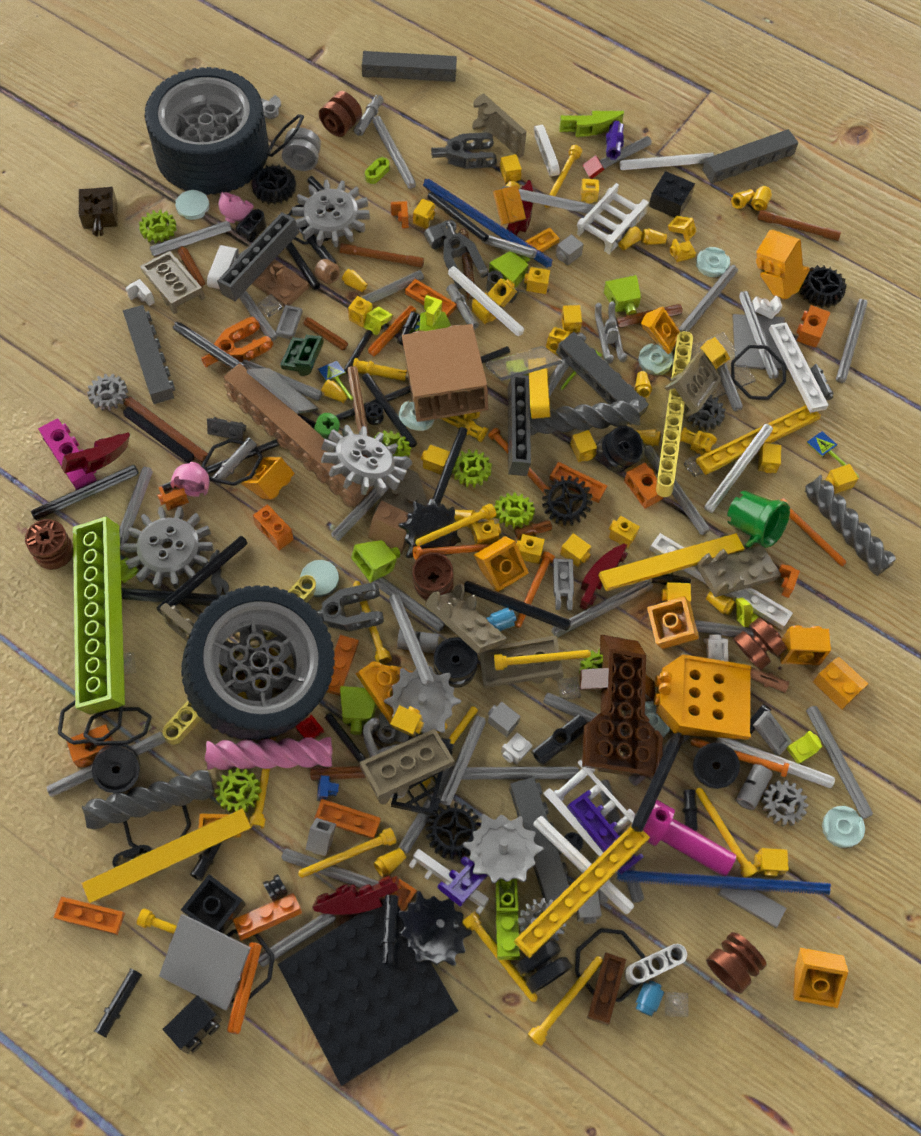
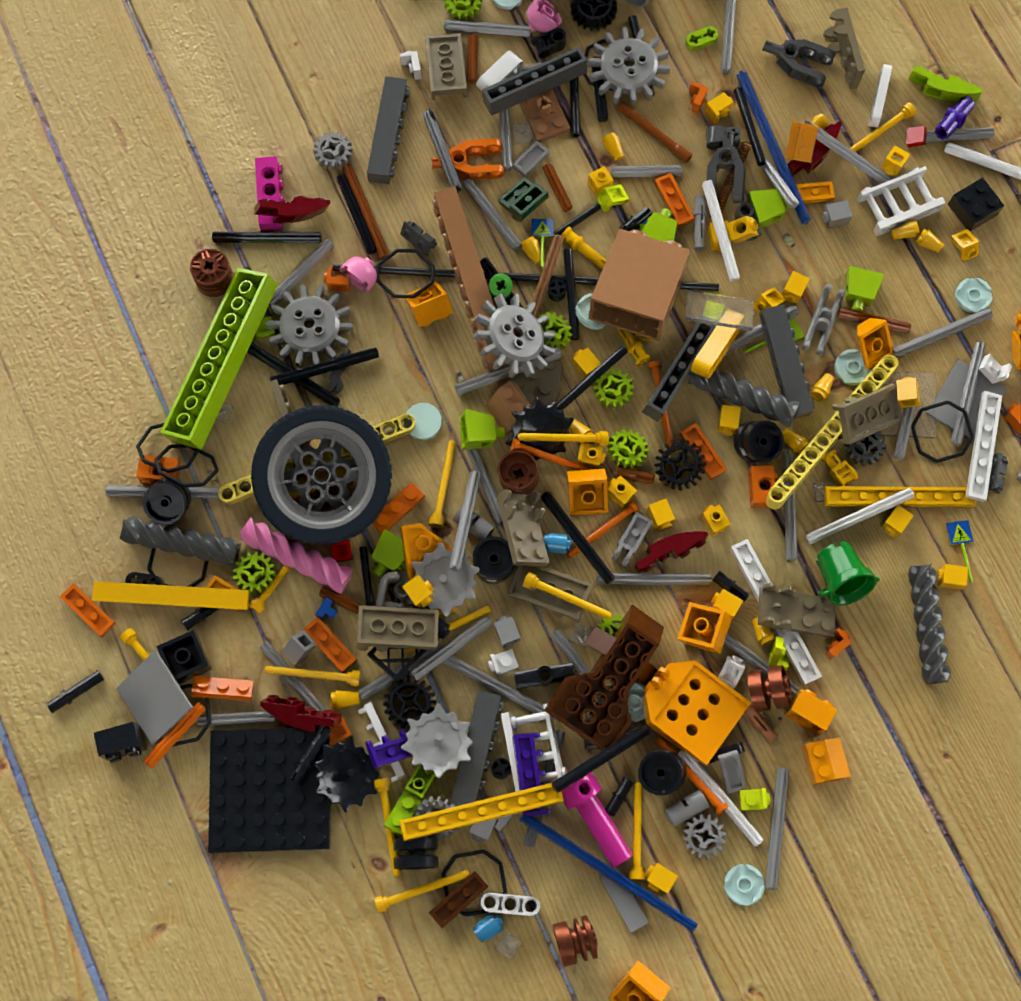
camera: 30 degrees right, 10 degrees up
(229, 466) = (408, 273): light grey pin -> none
(273, 527) = (407, 354): orange brick -> none
(275, 887) = (241, 668): black wheel -> none
(282, 390) = (482, 229): light grey piece -> none
(327, 271) = (592, 124): medium nougat head -> none
(350, 596) = (425, 452): dark grey piece -> none
(390, 332) = (619, 215): orange axle -> none
(433, 309) = (665, 216): neon yellow bracket -> none
(510, 168) = (832, 99): yellow brick -> none
(537, 280) = (786, 231): yellow brick -> none
(581, 862) = (495, 788): white axle -> none
(668, 562) = (737, 571): yellow tile -> none
(682, 251) = (949, 268): yellow bracket -> none
(816, 537) = (890, 611): orange bar -> none

